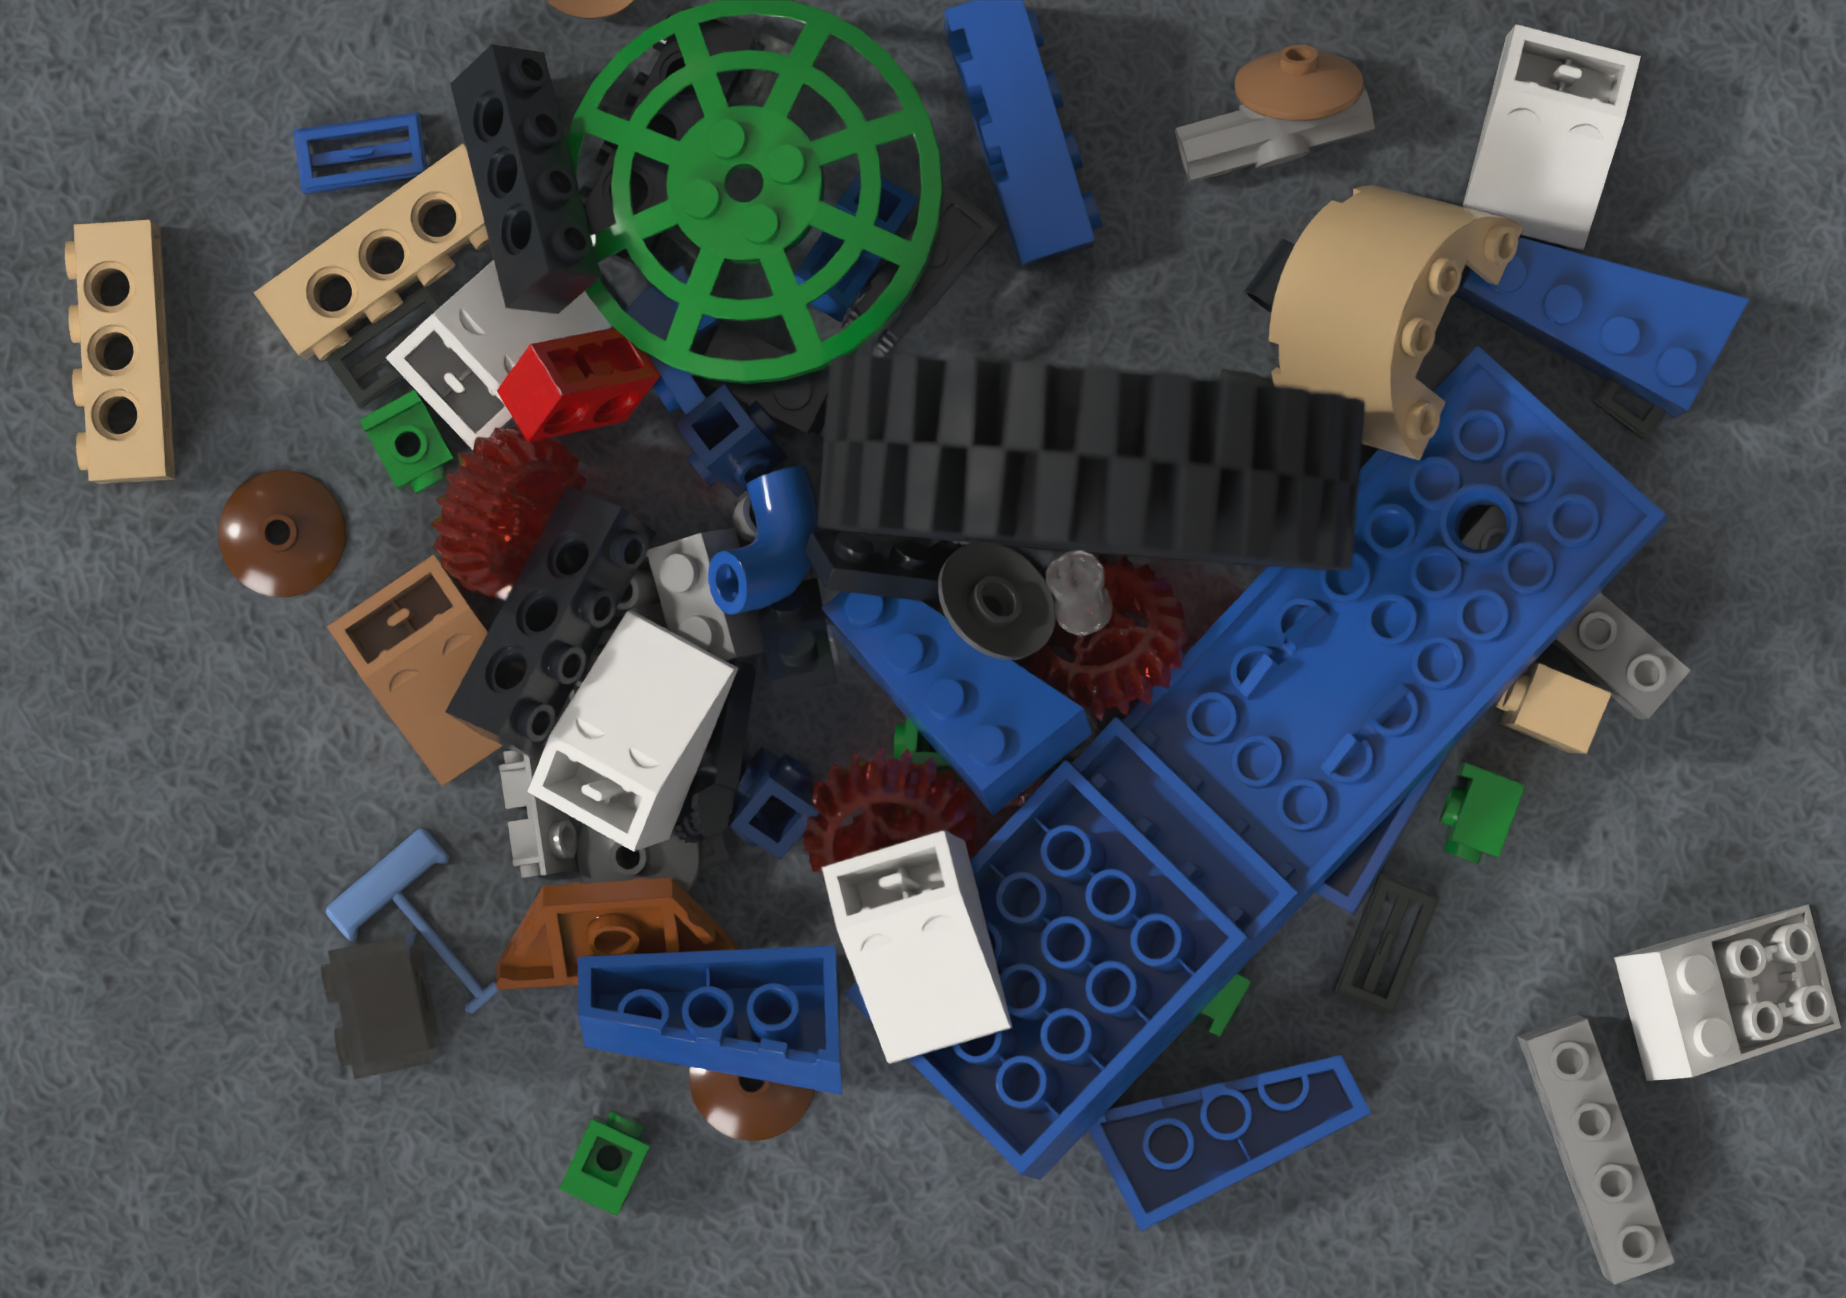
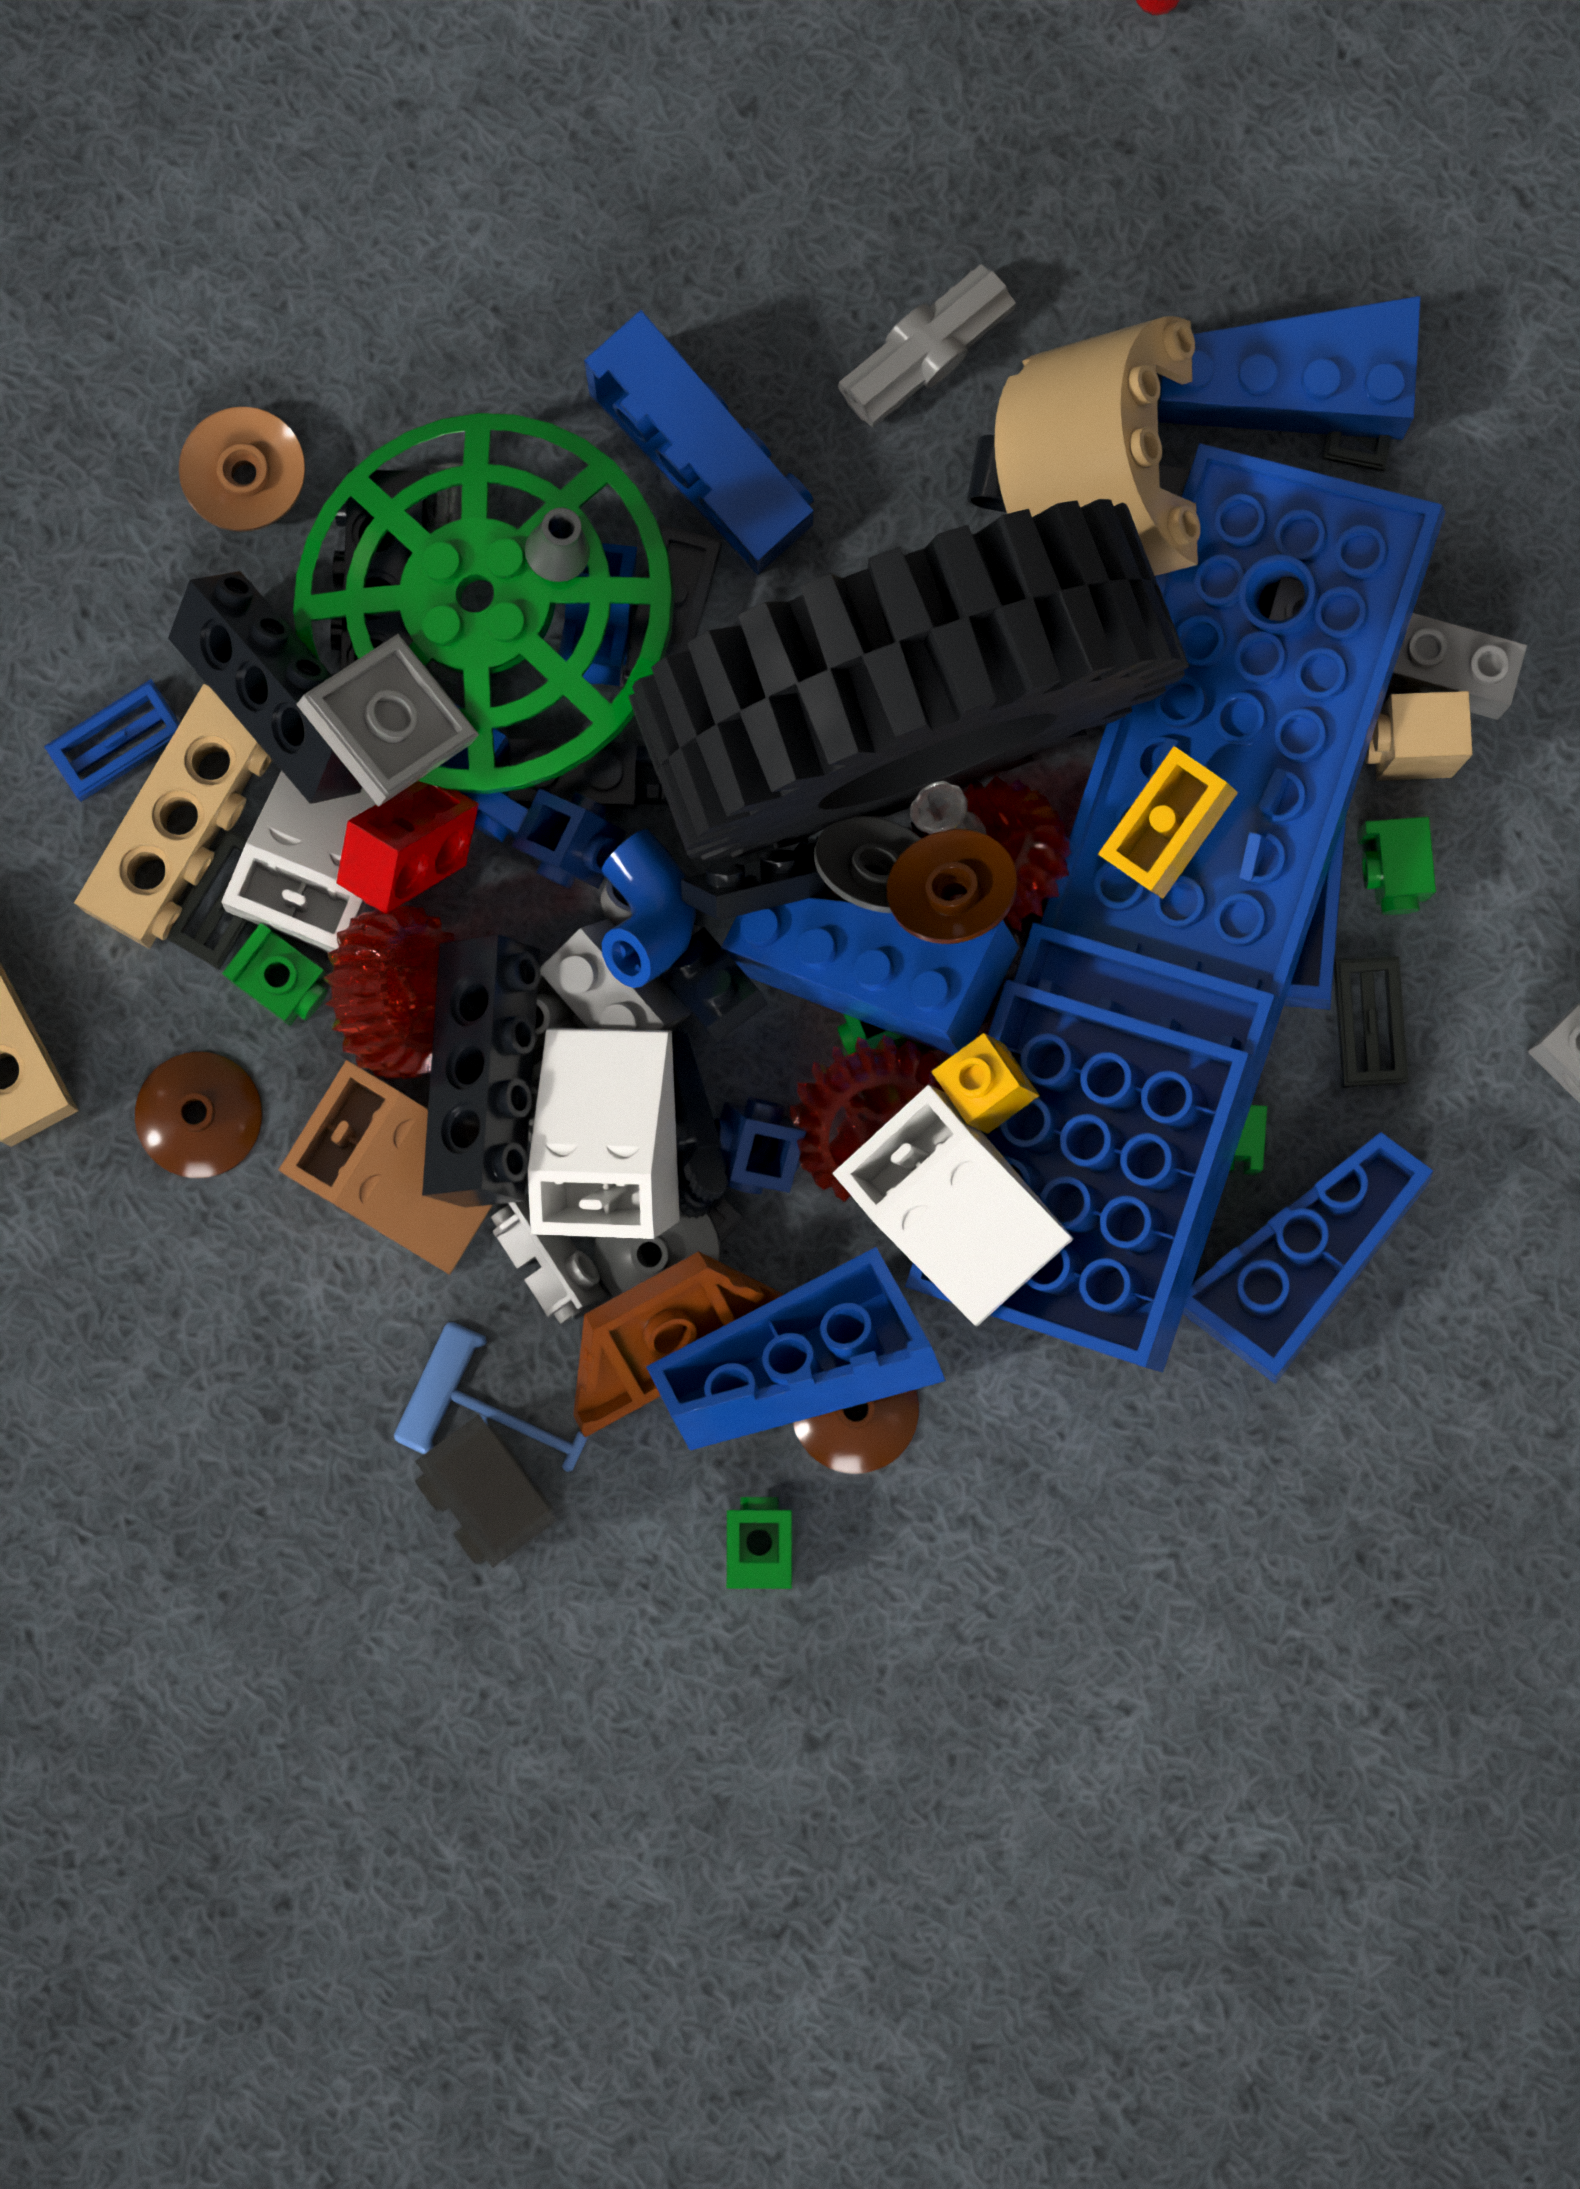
camera: 25 degrees left, 5 degrees down
(609, 266) = (387, 719): none -> light grey tile
(826, 190) = (556, 557): none -> dark grey cone
(998, 849) = (985, 1083): none -> yellow brick
(1055, 635) = (949, 866): none -> reddish brown dish
(1276, 690) = (1168, 822): none -> yellow brick
(1299, 84) = (929, 291): medium nougat dish -> none
(1550, 134) = (1173, 230): white slope -> none

